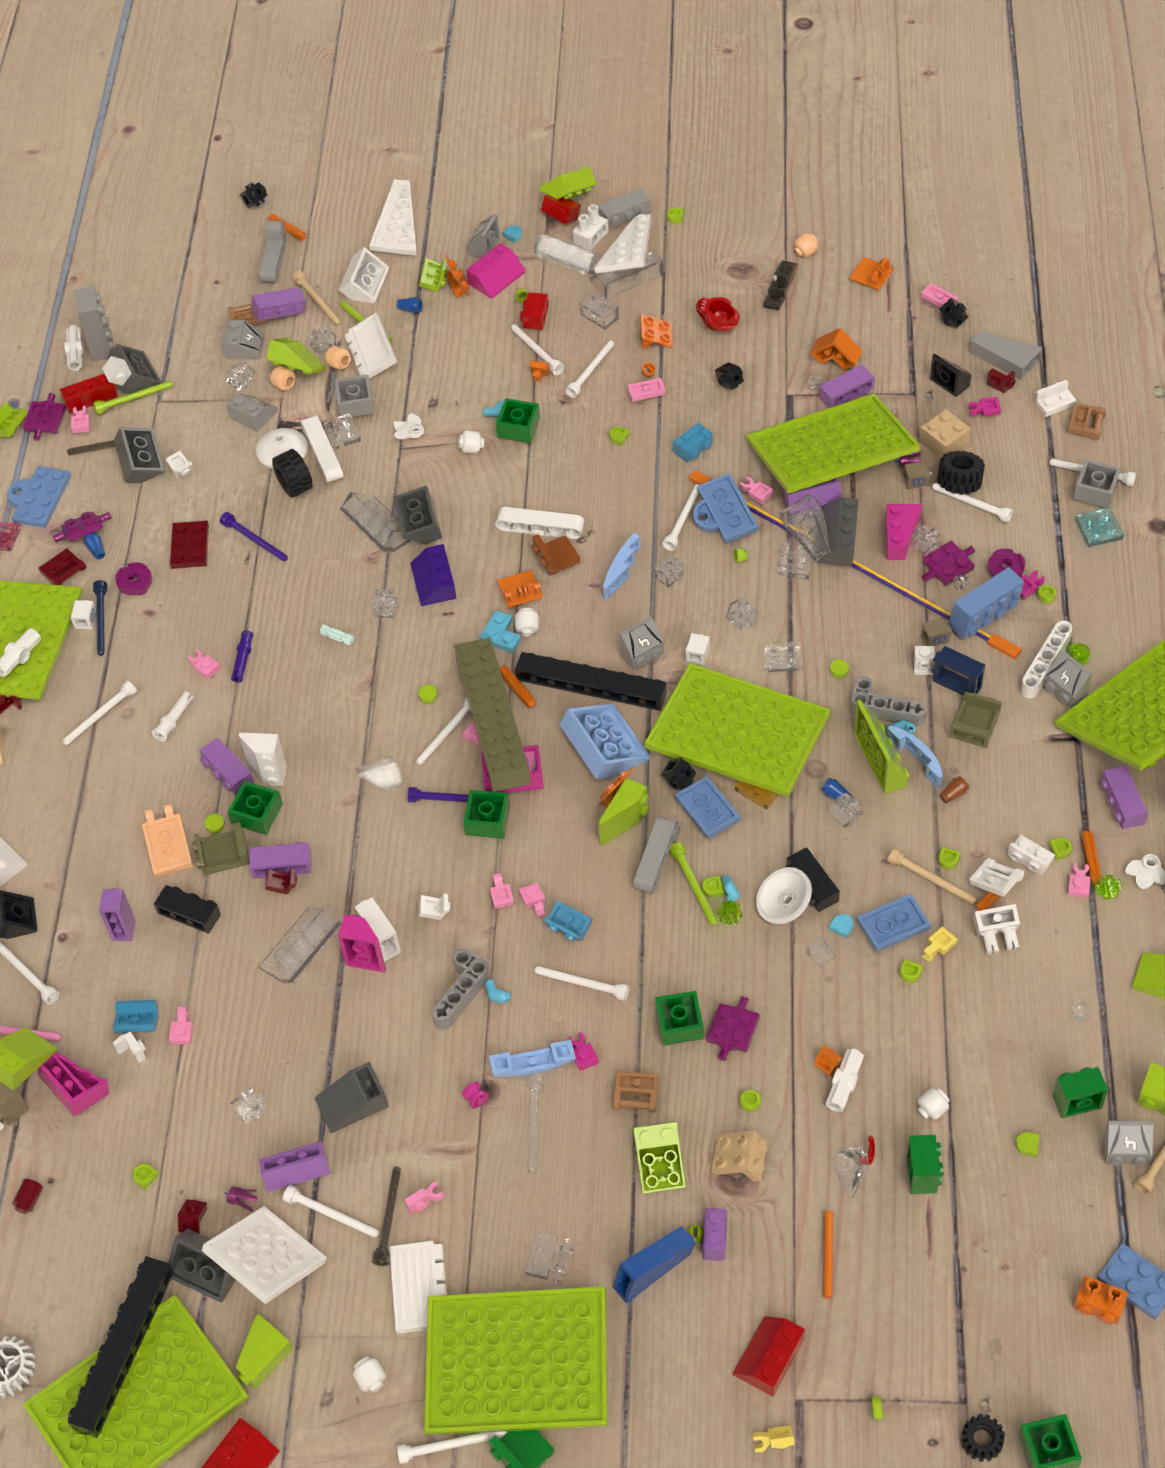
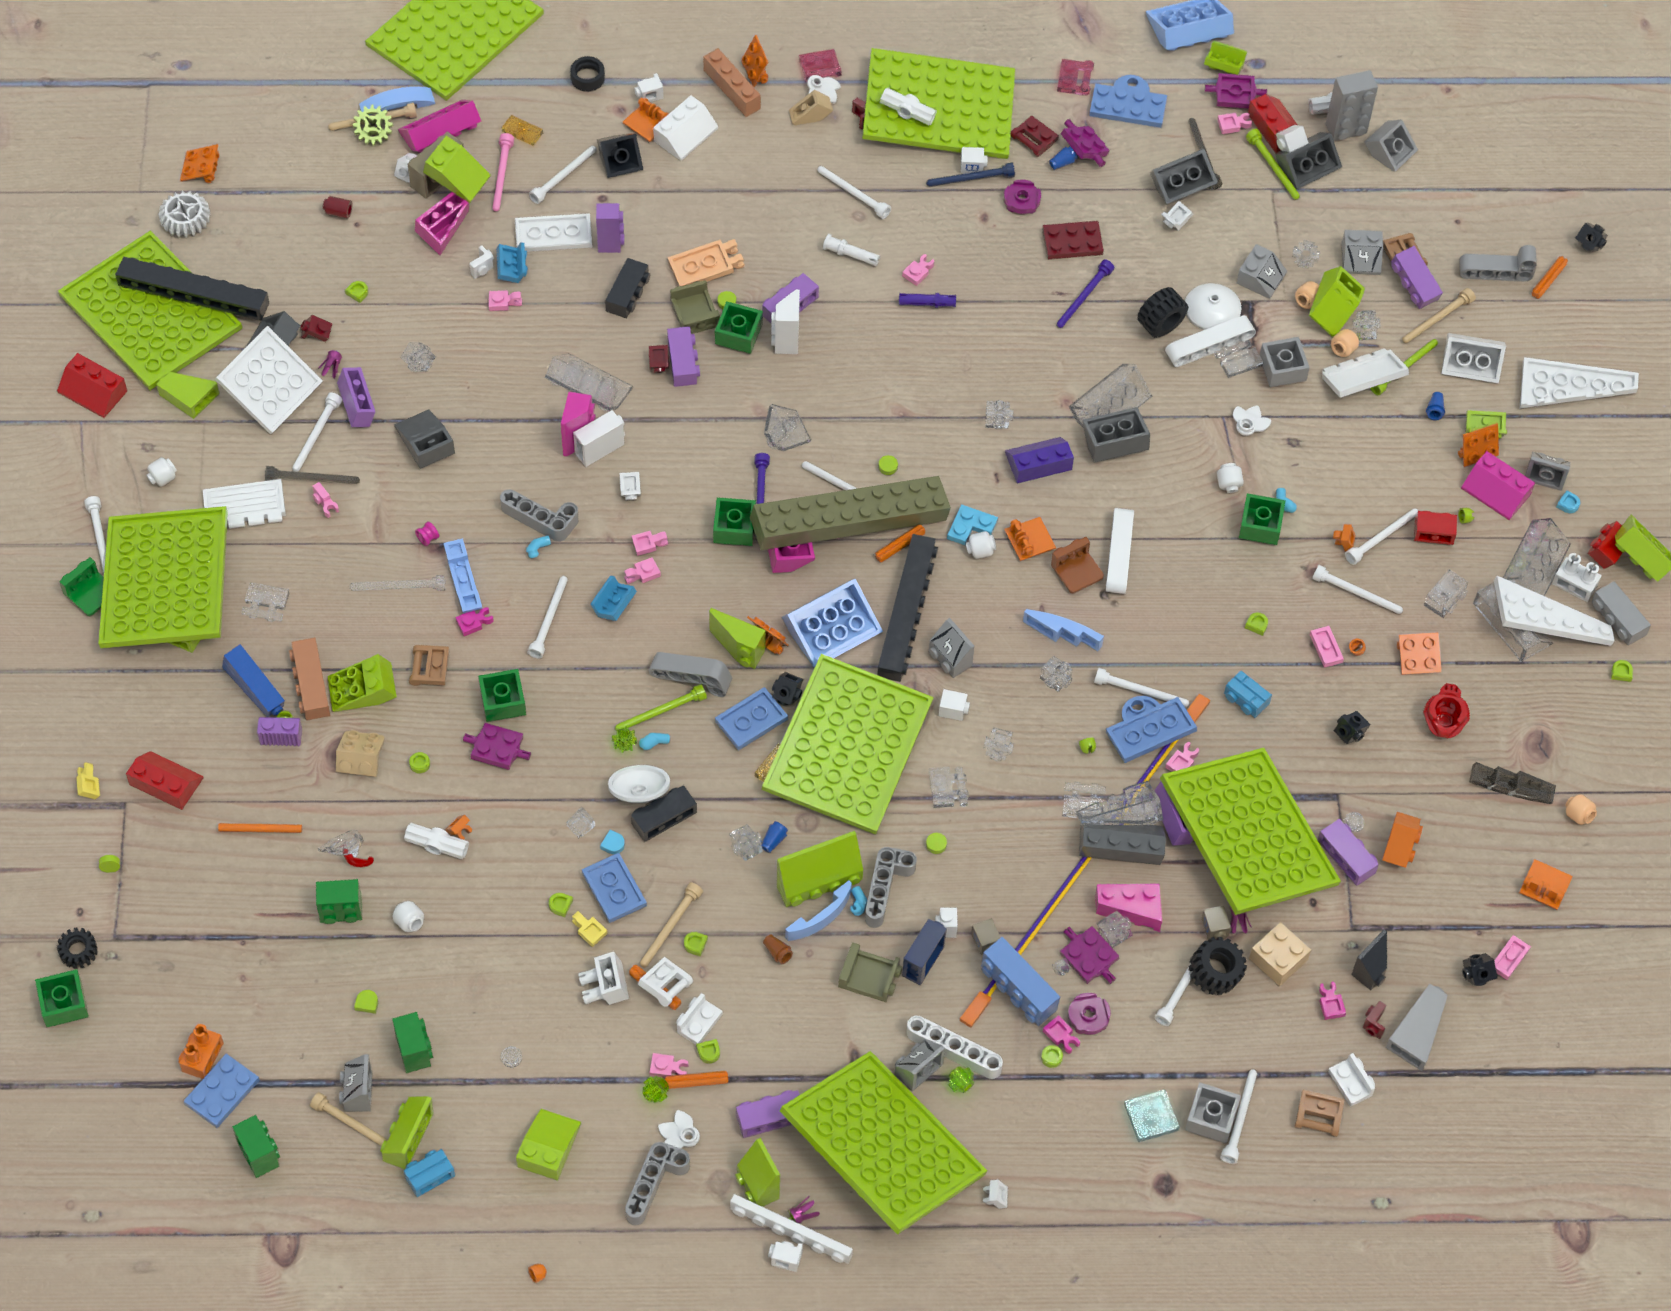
camera: 80 degrees right, 5 degrees up
(100, 981) = (554, 232): none -> white tile
(128, 314) = (1391, 144): none -> light grey slope
(336, 634) = (960, 379): light aqua axle -> none
(649, 1206) = (310, 678): none -> nougat brick
(713, 887) = (659, 725): lime tile -> none

